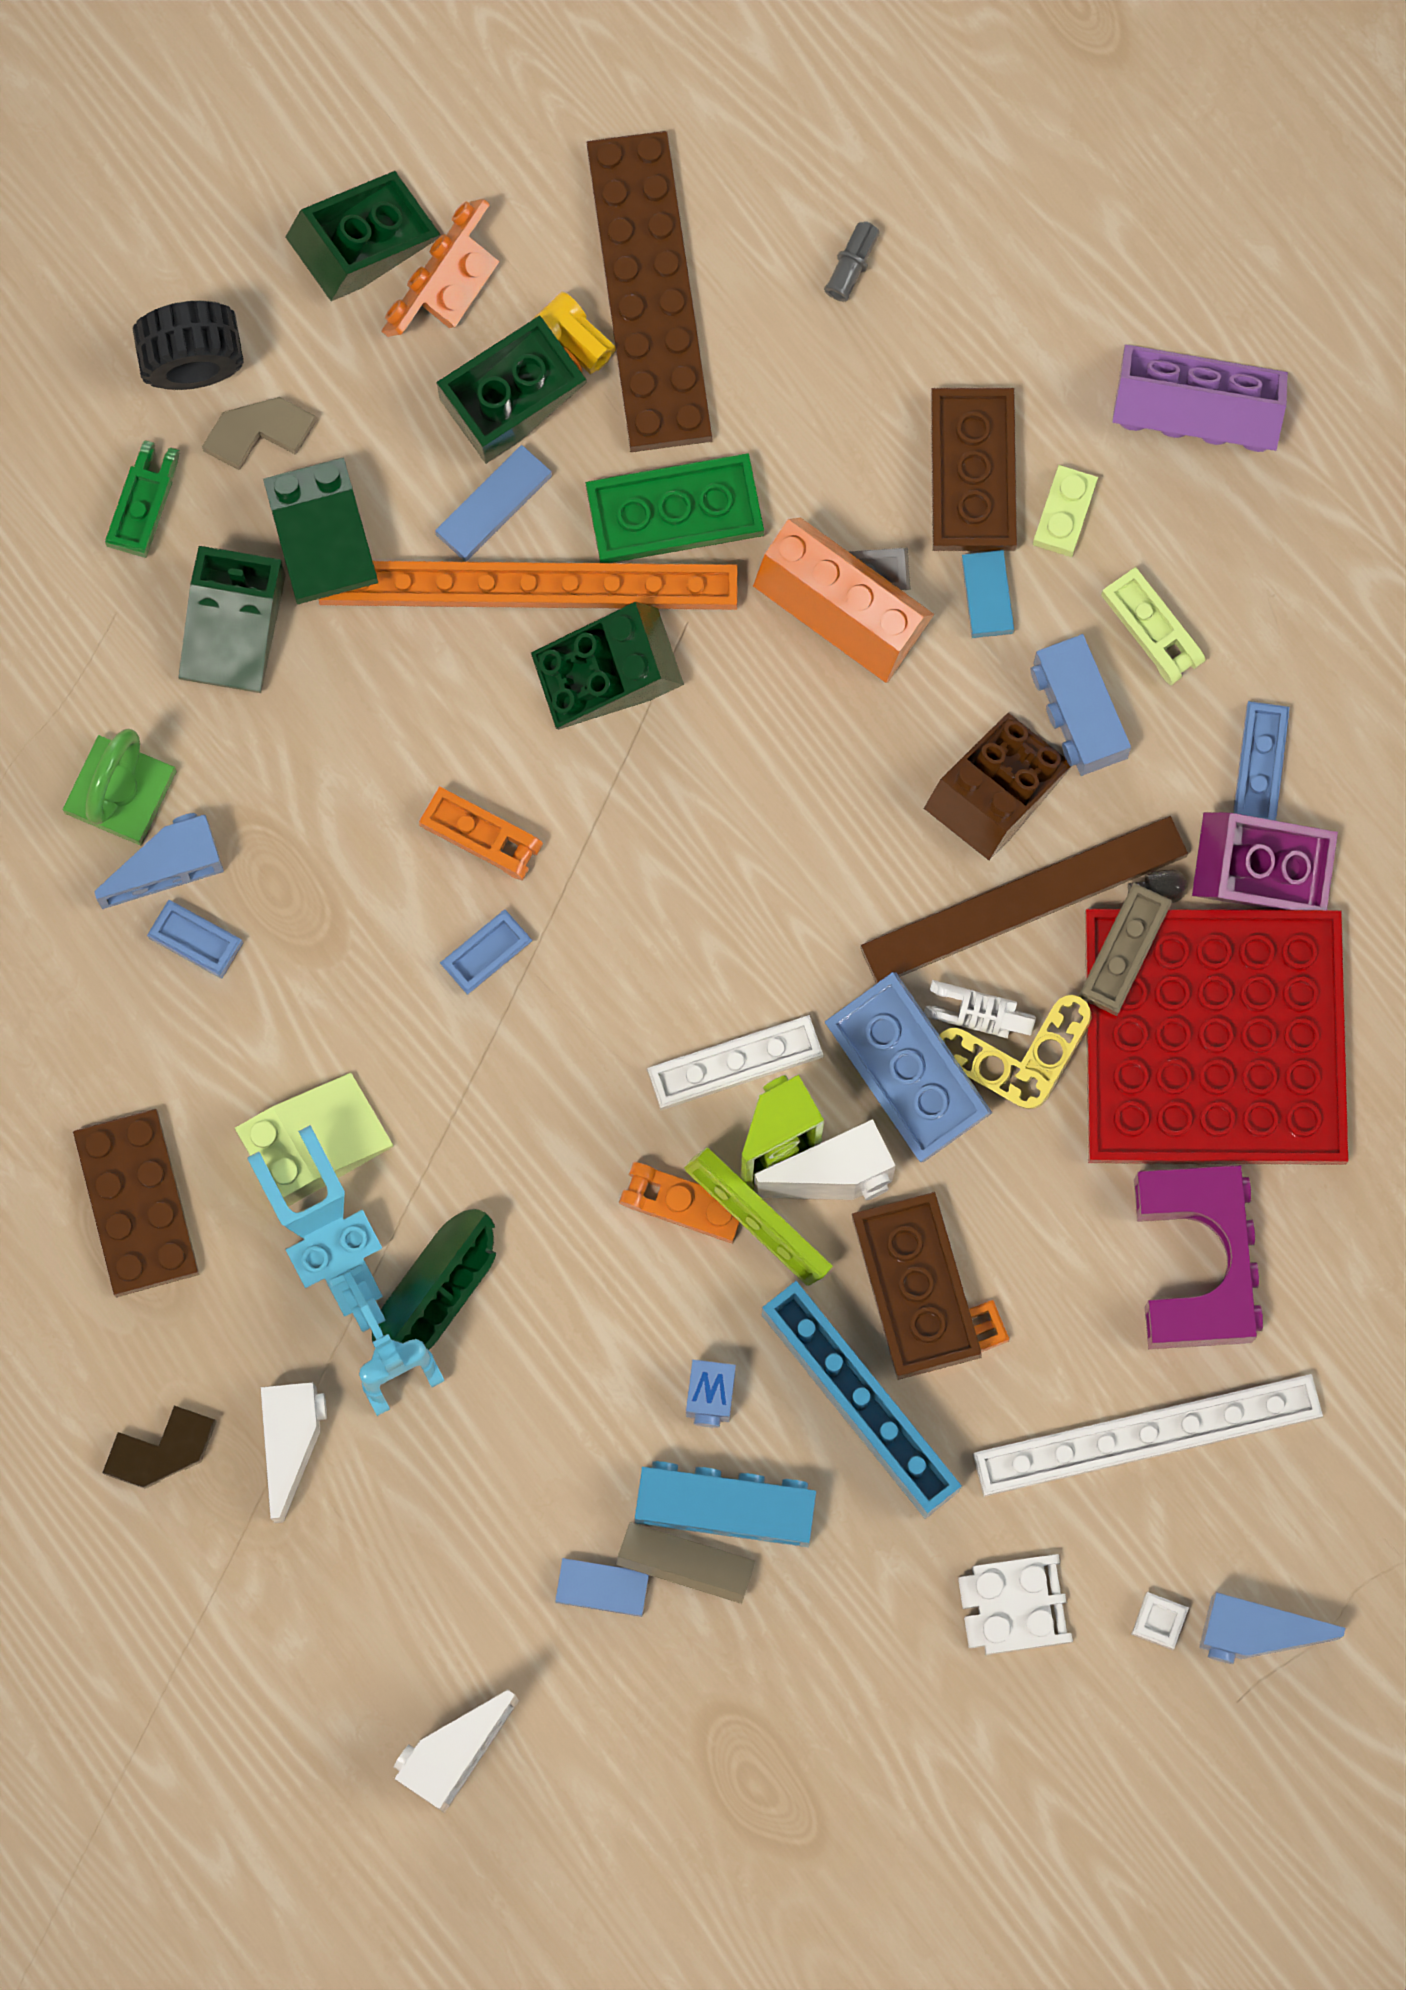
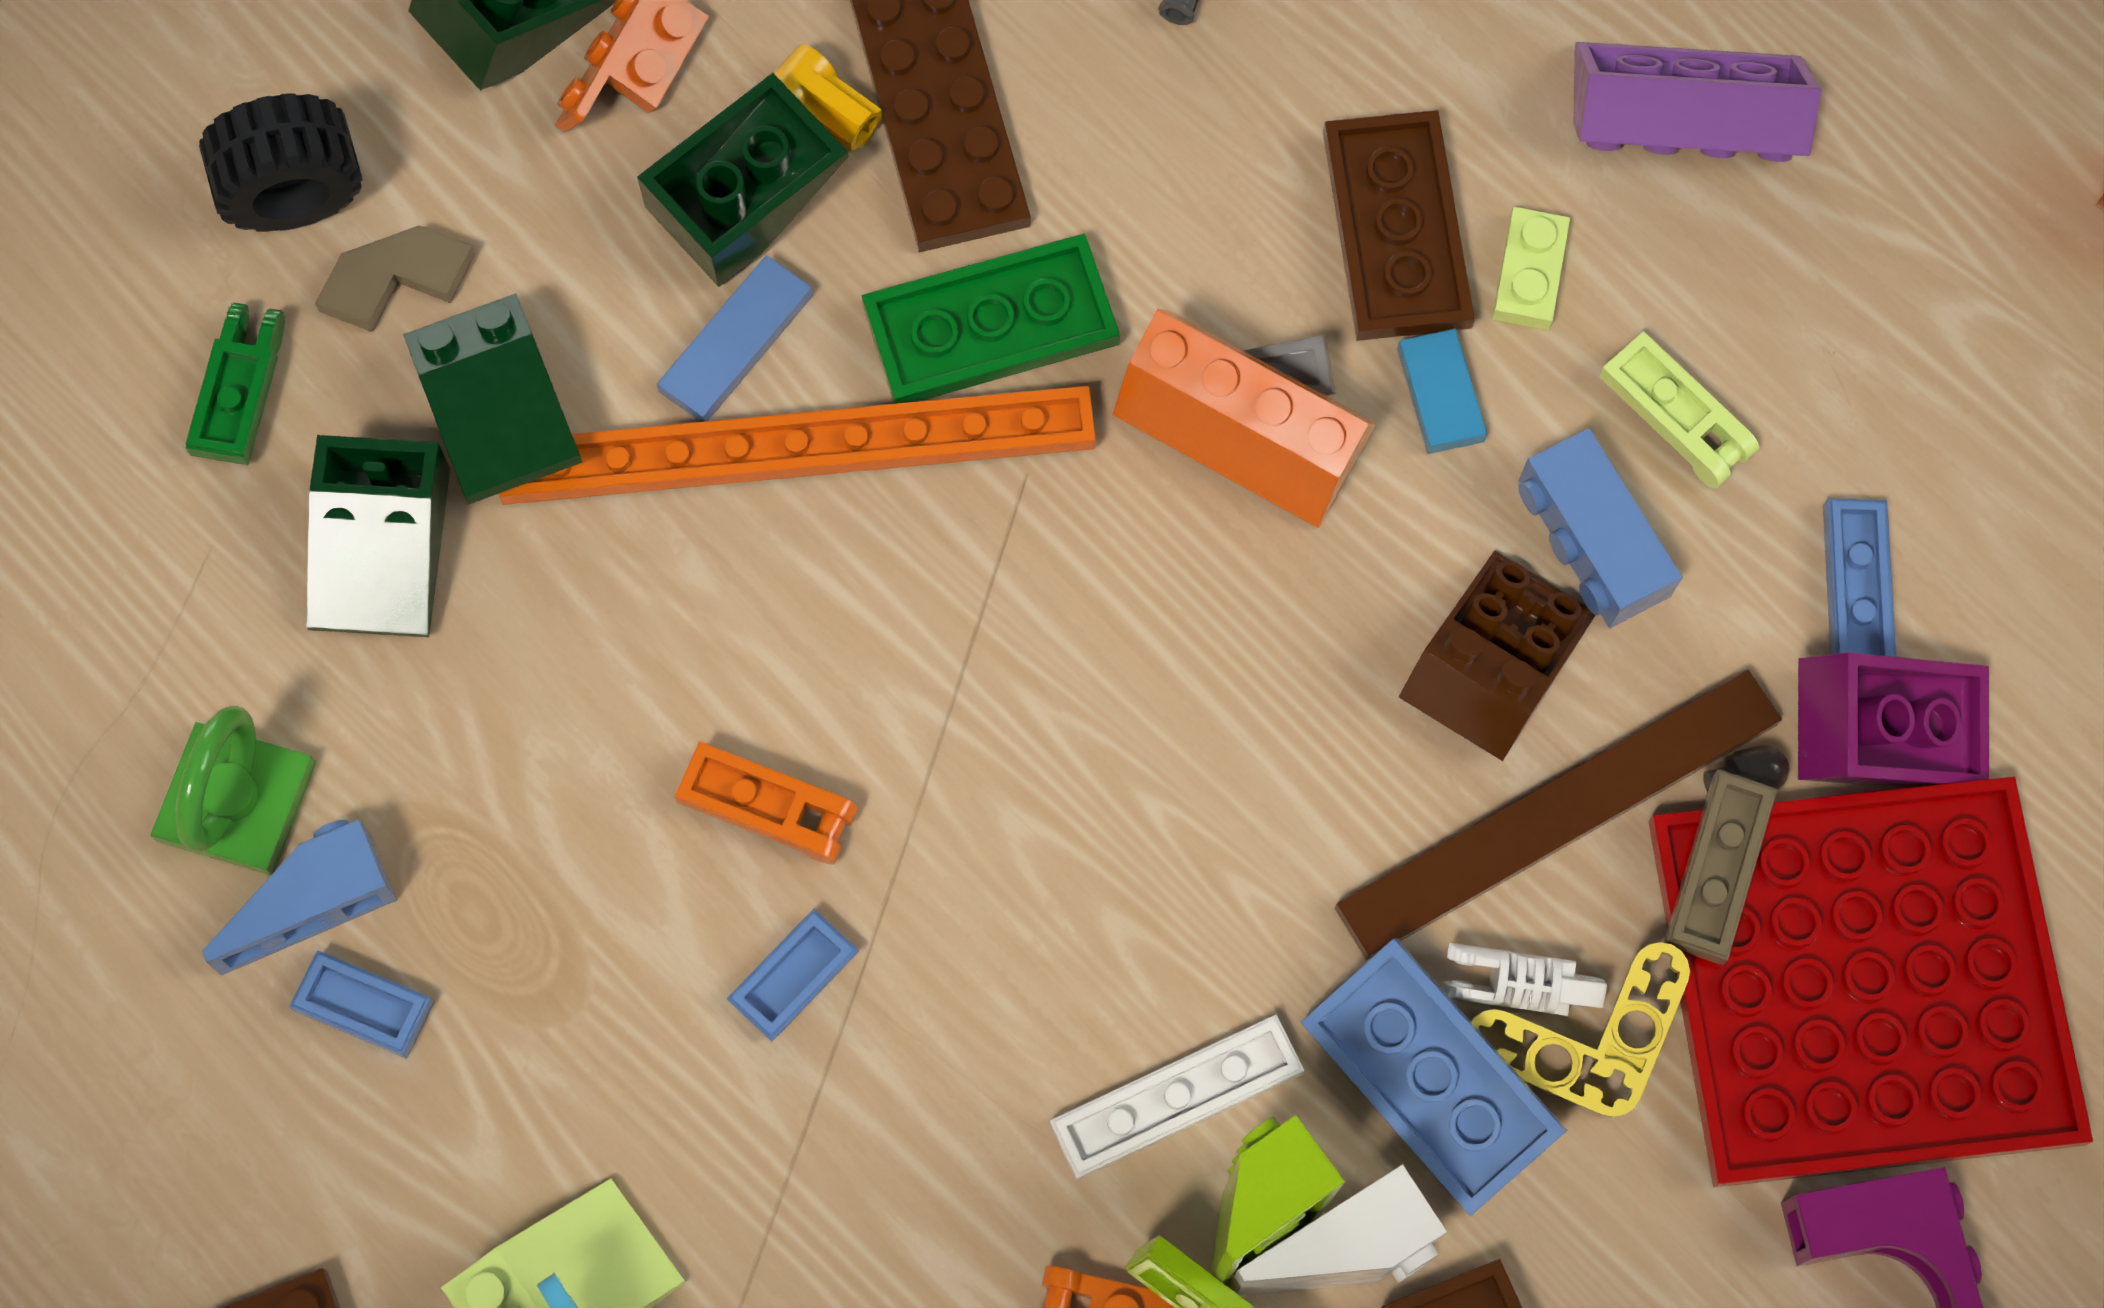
camera: 10 degrees left, 5 degrees down
(607, 666) = (922, 545): dark green slope -> none

